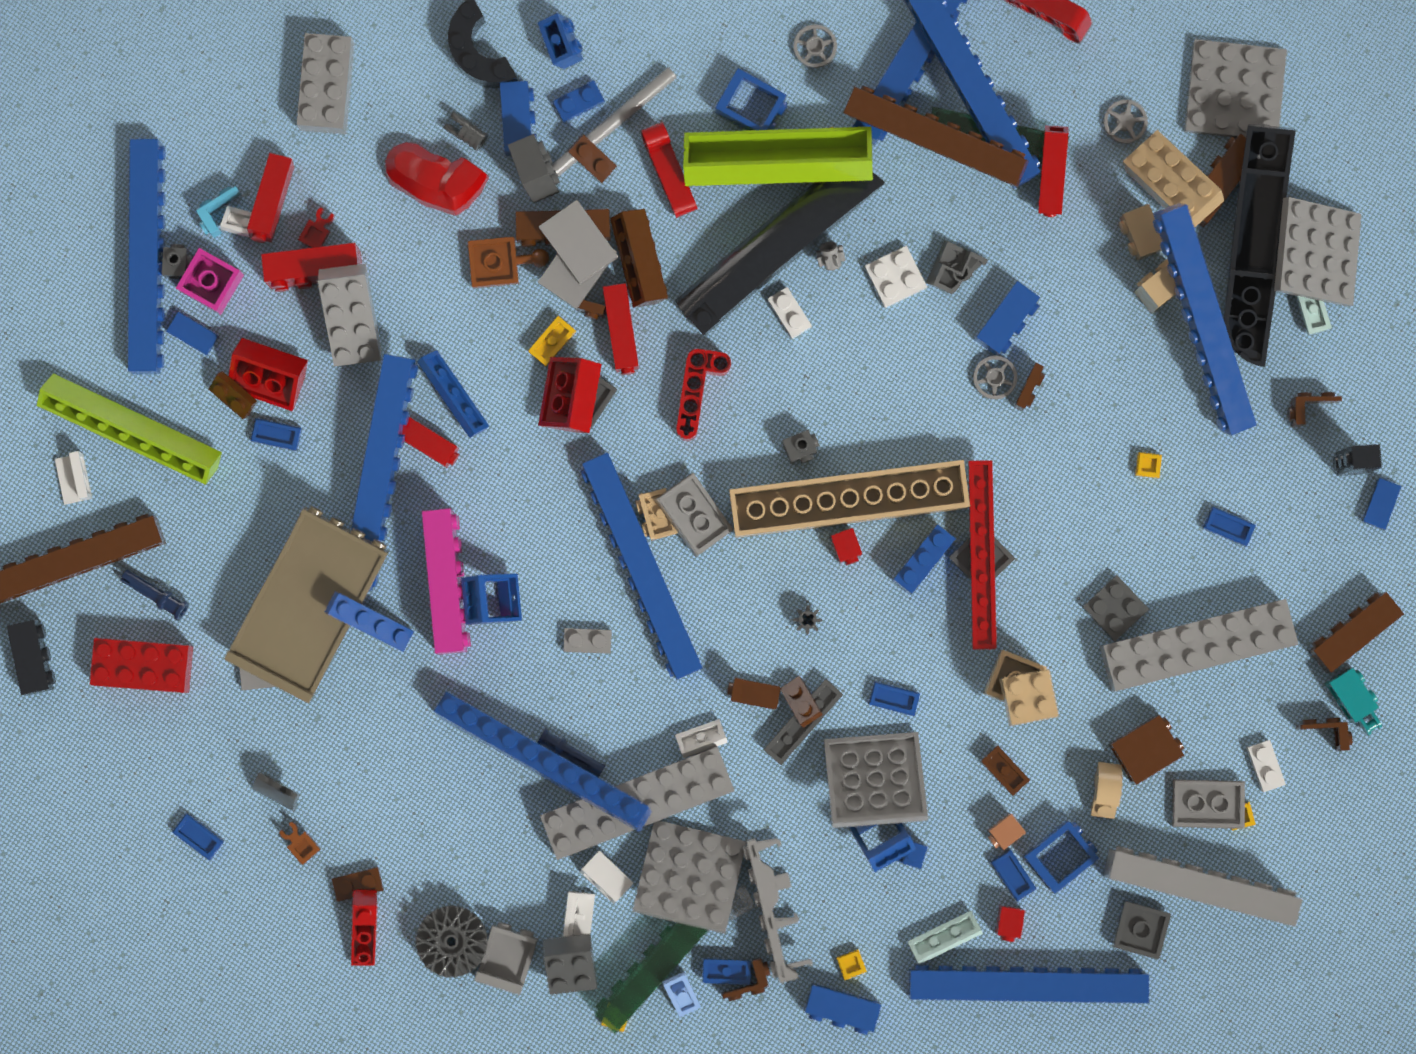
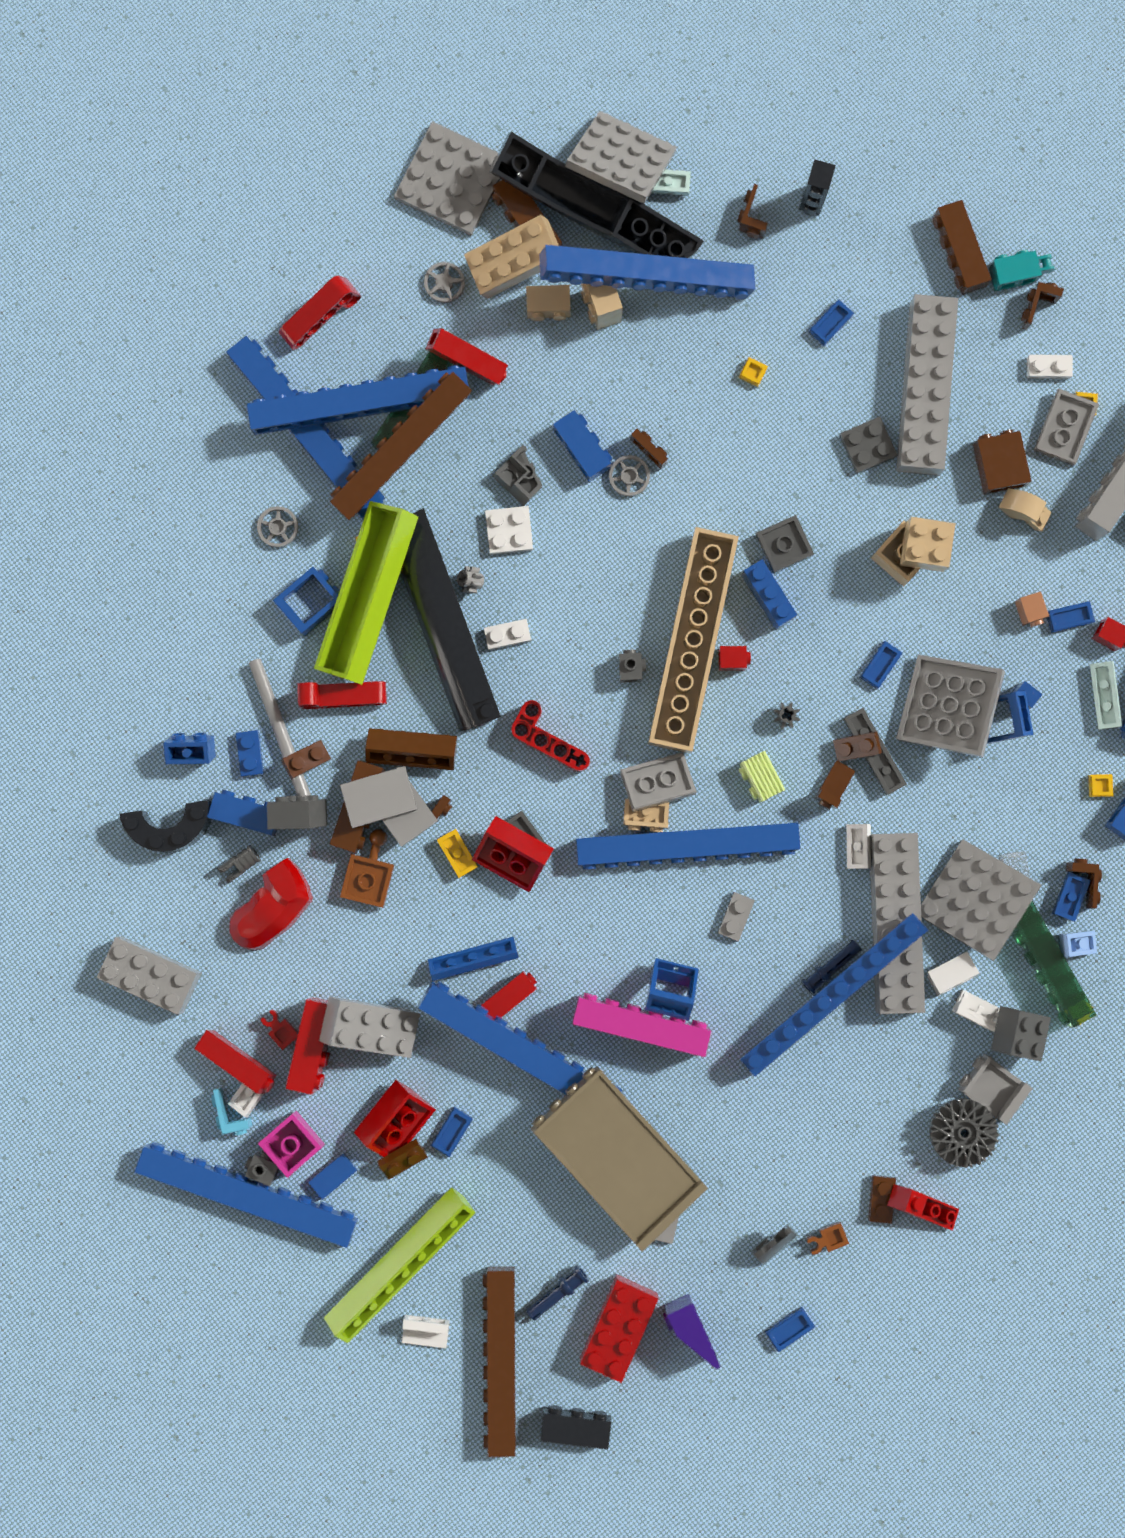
camera: 70 degrees left, 0 degrees up
(165, 734) = (686, 1323): none -> dark purple slope
(369, 621) = (653, 1107): blue plate -> none
(621, 328) = (468, 787): red brick -> none
(736, 617) = (761, 776): none -> yellowish green brick
(767, 897) = (1022, 837): light grey piece -> none
(982, 555) = (784, 541): red plate -> none
(1005, 770) = (977, 591): reddish brown plate -> none
(1041, 870) = (1052, 576): blue window -> none
(1381, 504) = (857, 186): blue tile -> none

